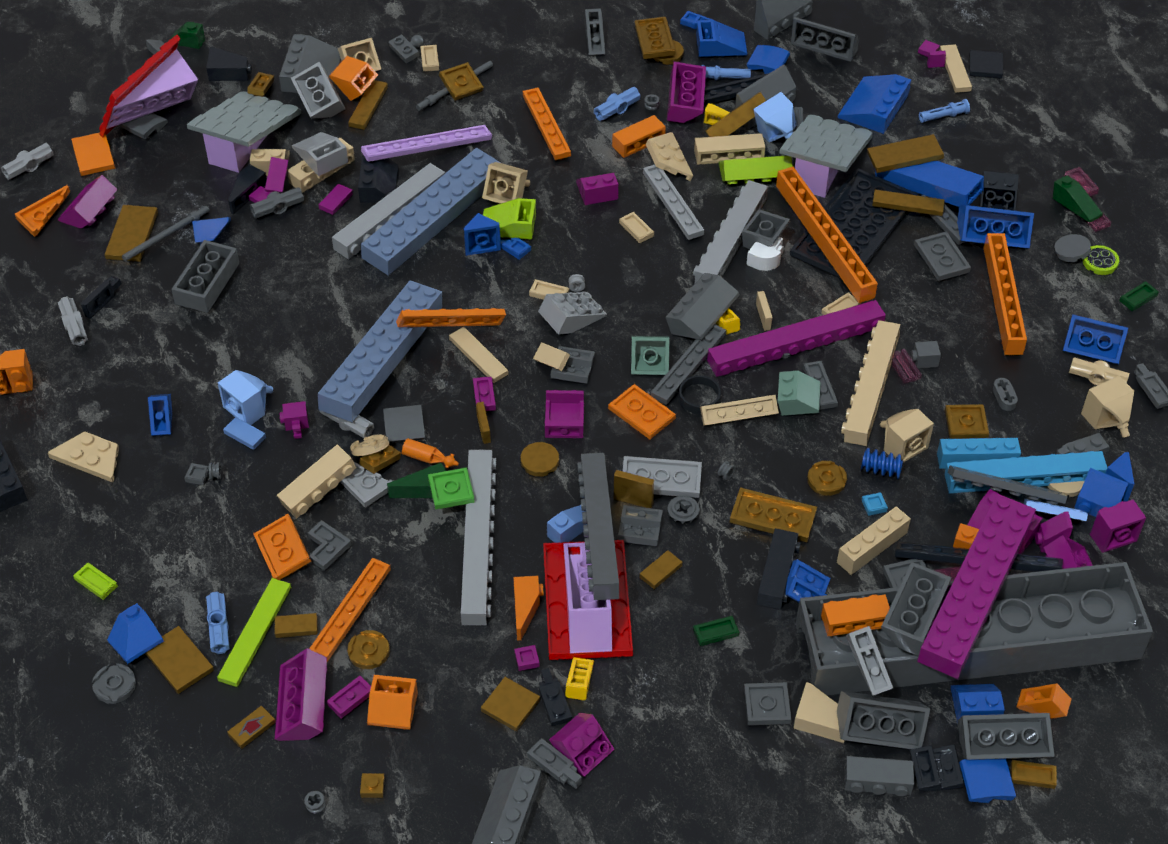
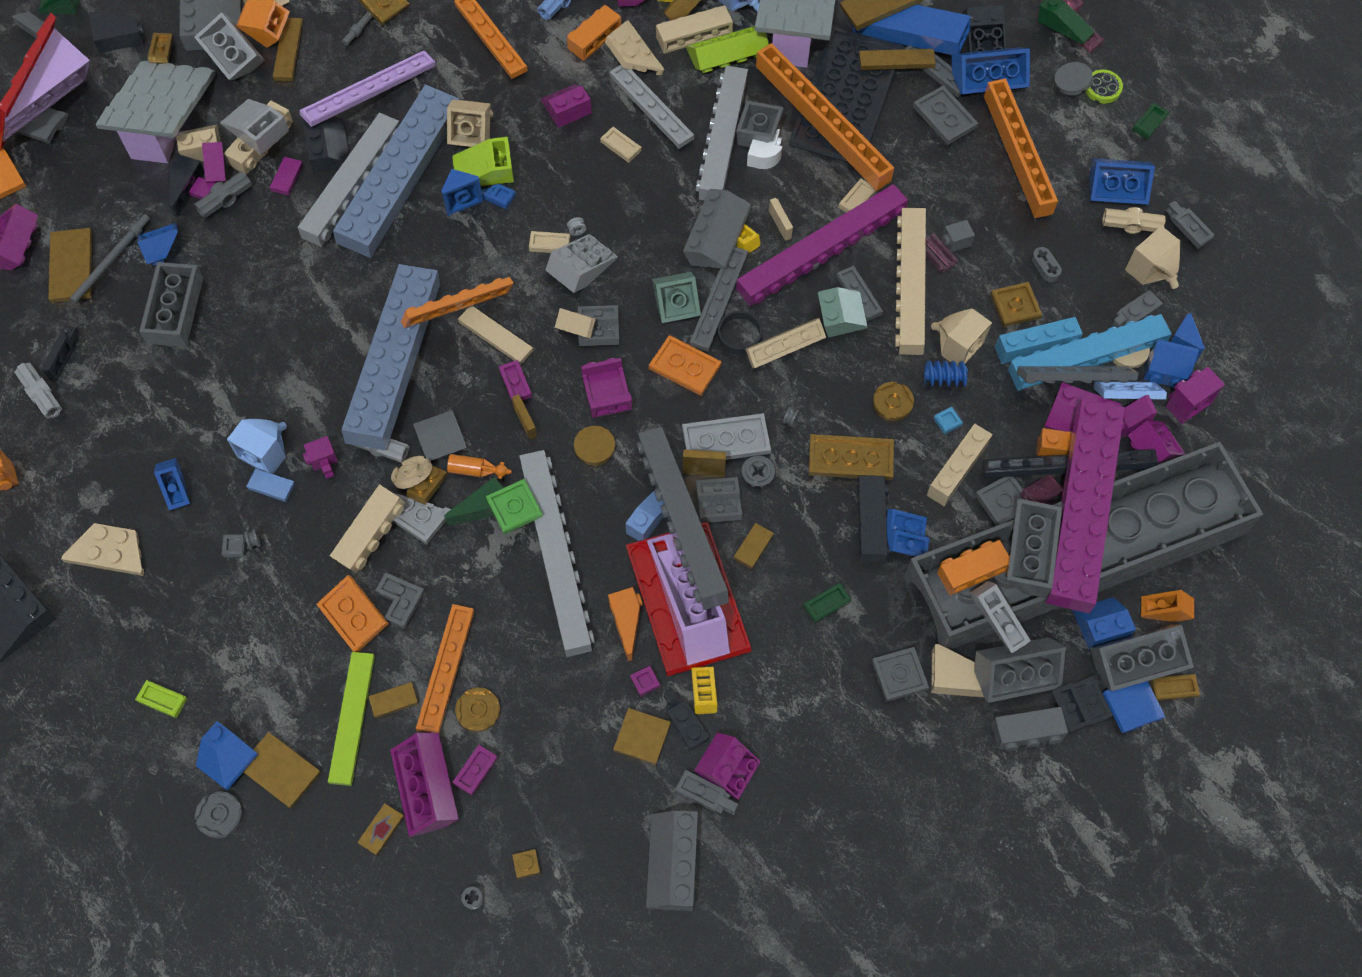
camera: 15 degrees left, 15 degrees up
(218, 631) = (314, 731): medium blue piece -> none
(392, 702) = (521, 768): orange slope -> none

